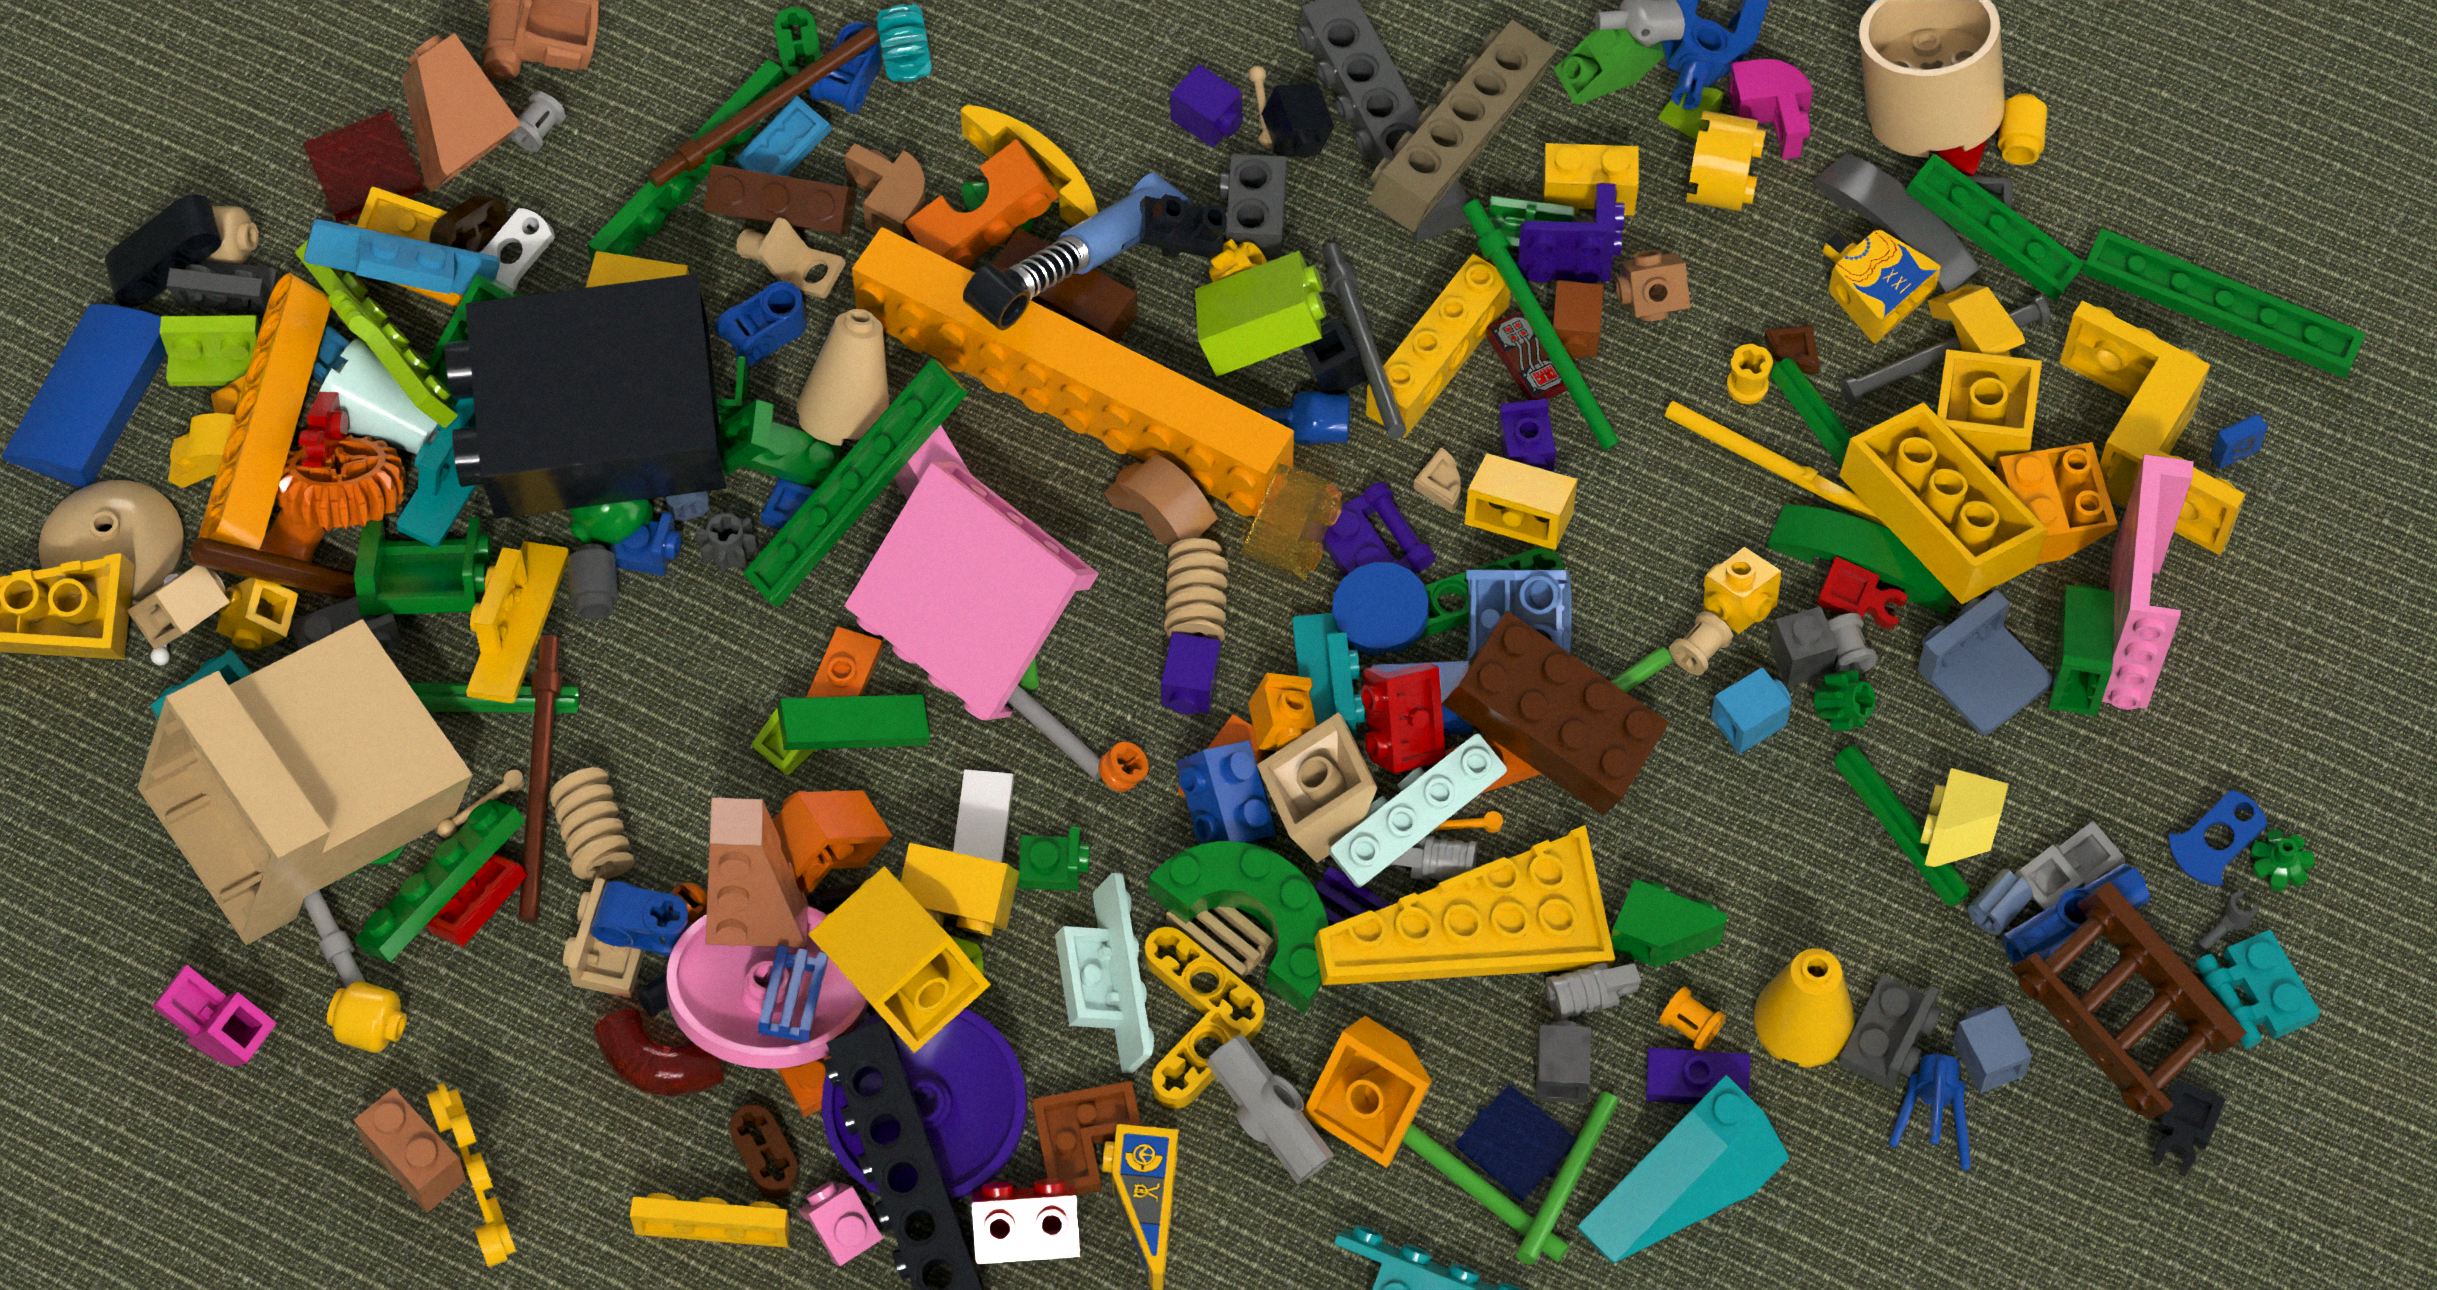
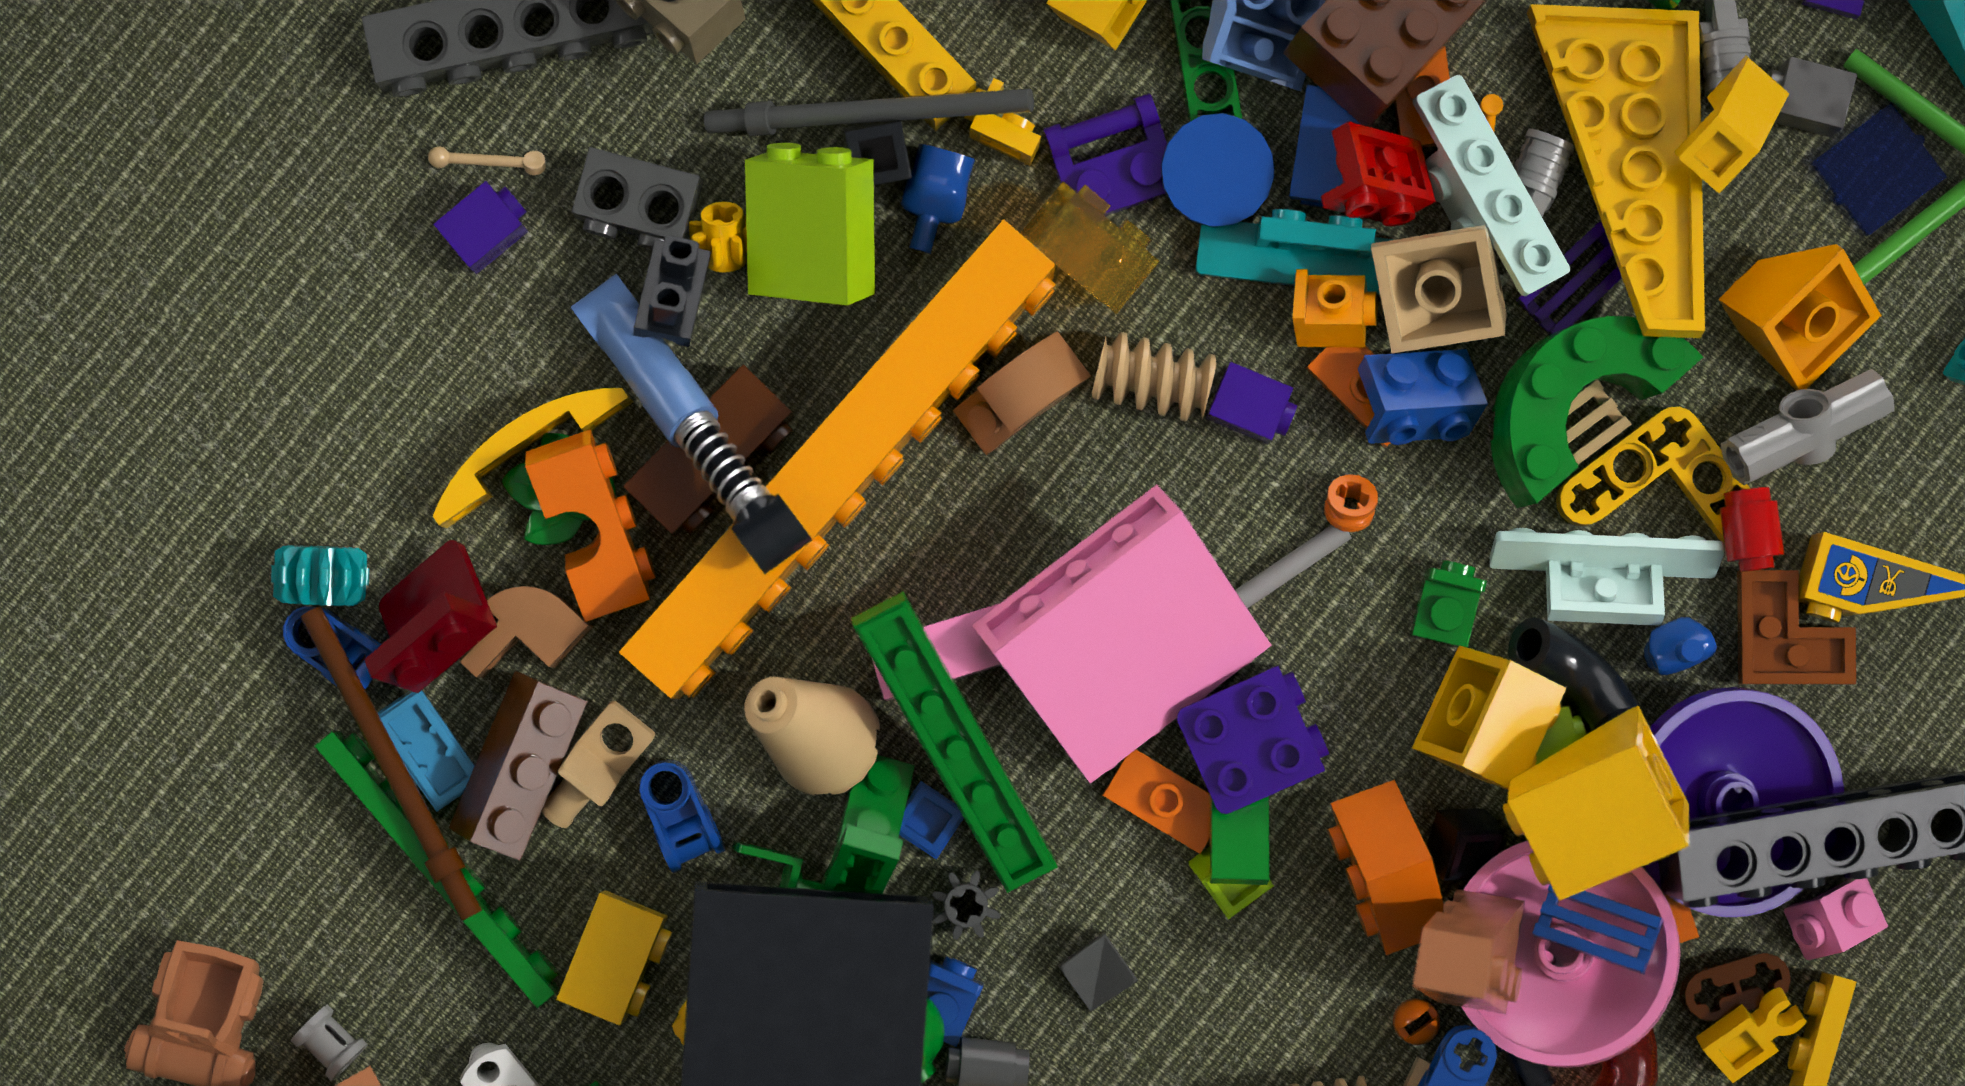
camera: 80 degrees left, 25 degrees up
(689, 650) = (1097, 972): none -> dark grey slope
(717, 1160) = (1746, 1039): none -> yellow plate
(789, 49) = (284, 718): green beam -> none
(877, 113) = (431, 620): none -> dark red bracket
(908, 721) = (1252, 739): none -> dark purple bracket
(984, 814) = (1378, 673): white tile -> none
(1016, 963) = (1564, 658): none -> black cylinder
(1025, 1222) = (1893, 717): brick -> none
(1052, 1042) = (1678, 646): none -> blue piece
(1168, 1070) = (1751, 528): none -> red brick
(1297, 120) = (531, 122): black brick -> none
(1377, 451) = (1008, 134): none -> yellow bracket
(1440, 481) = (1046, 63): tan tile -> none
(1517, 978) = (1736, 128): none -> yellow slope

